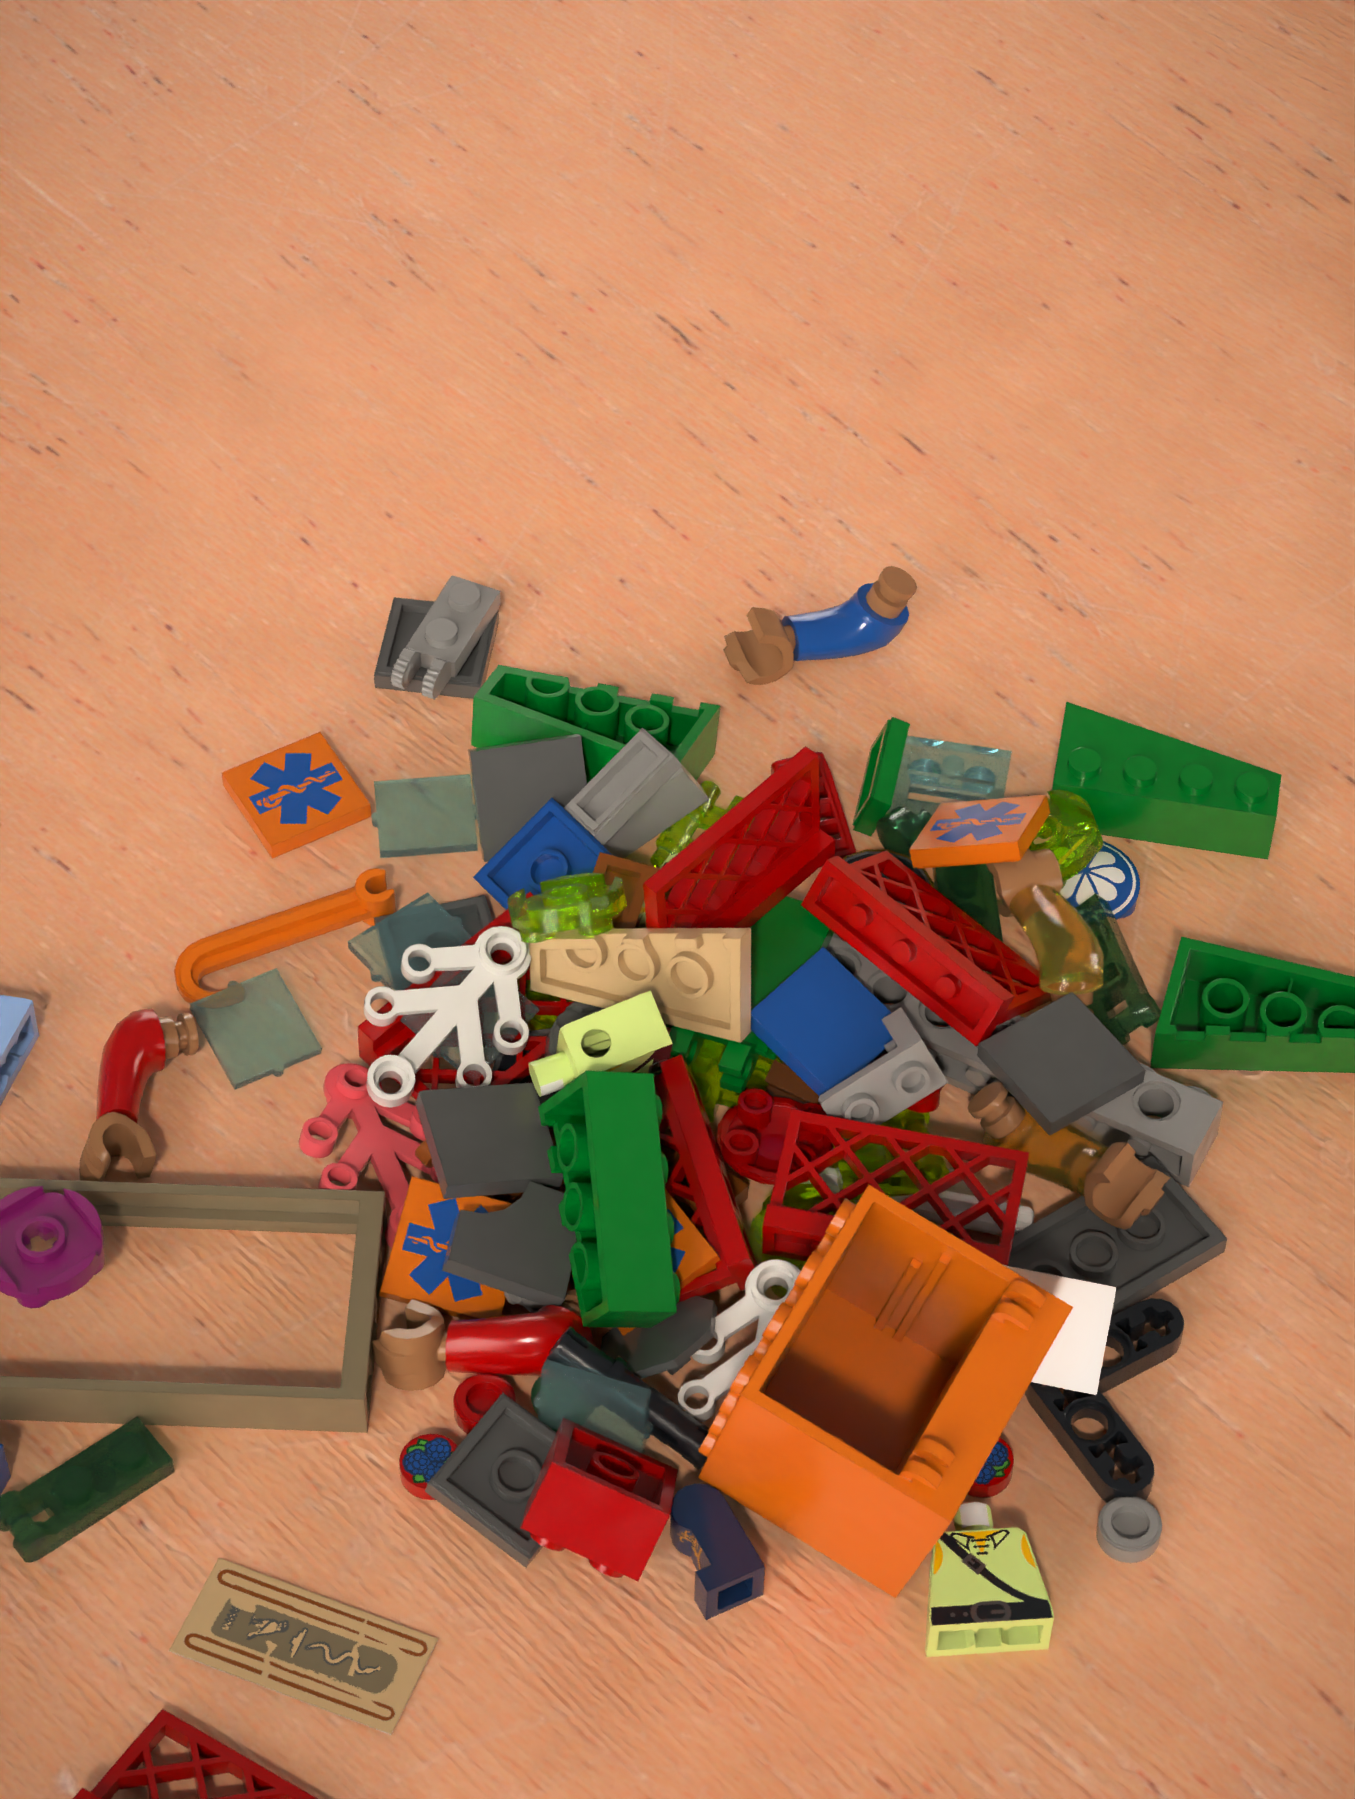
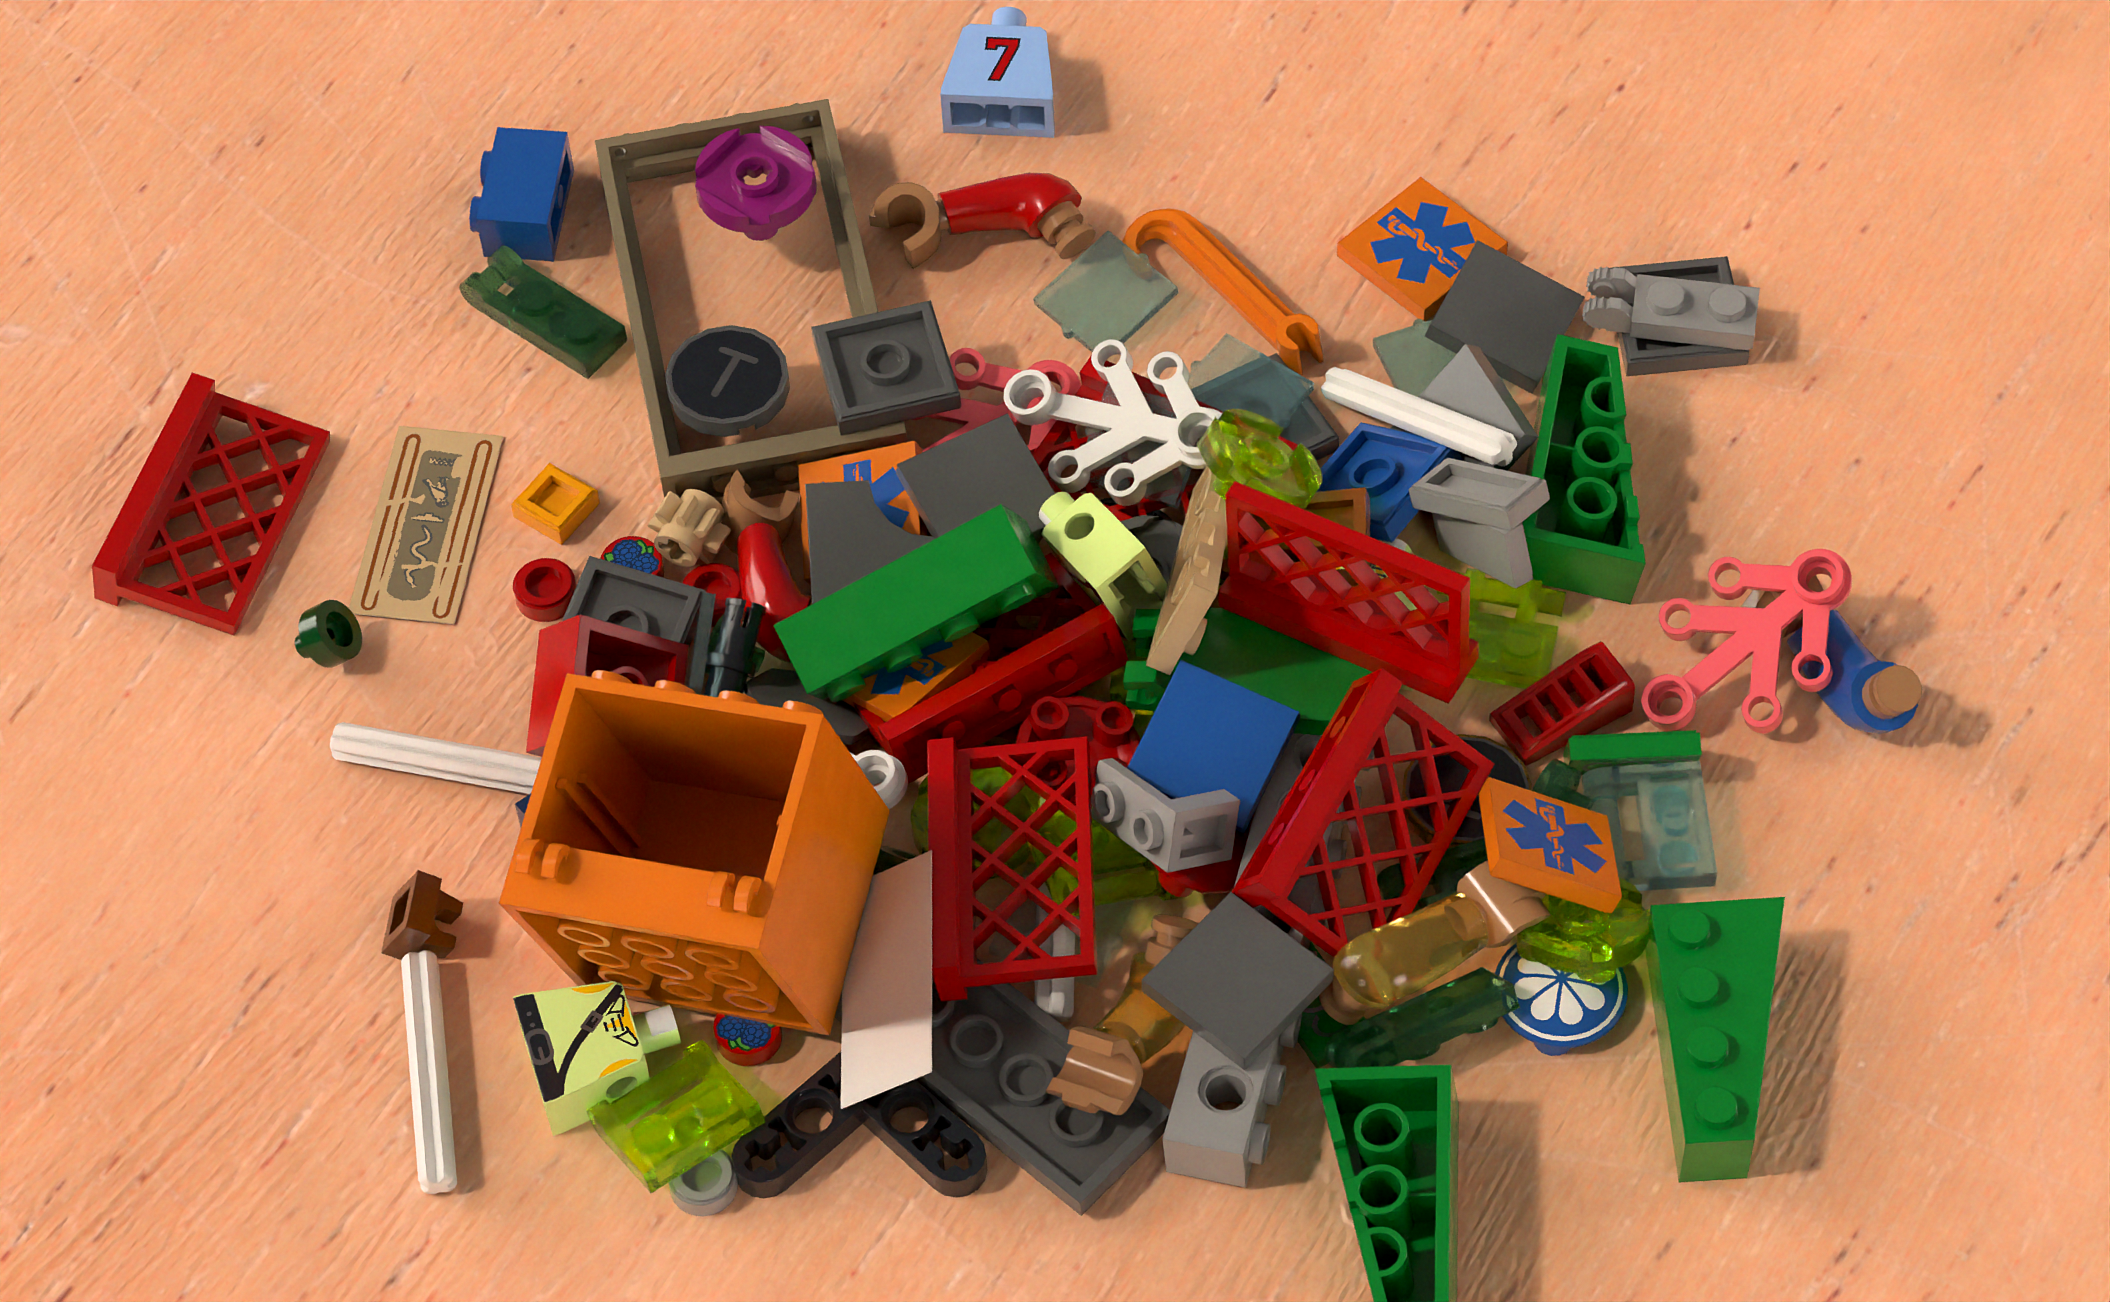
camera: 80 degrees right, 5 degrees up
(271, 1320) = (727, 380): none -> black tile
(308, 1187) = (886, 367): none -> dark grey tile
(327, 1521) = (555, 503): none -> light orange tile
(401, 751) = (1506, 313): none -> dark grey tile
(417, 1398) = (689, 527): none -> tan gear
(429, 1547) = (544, 589): none -> red tile
(431, 1743) = (328, 634): none -> dark green tile
(505, 820) = (1419, 416): none -> white axle
(612, 1660) = (434, 757): none -> white axle
(795, 1714) = (413, 917): none -> reddish brown tile
(806, 663) = (1754, 632): none -> coral plant
(964, 1735) = (428, 1072): none -> white axle
(1086, 1520) = (683, 1130): none -> clear neon green plate

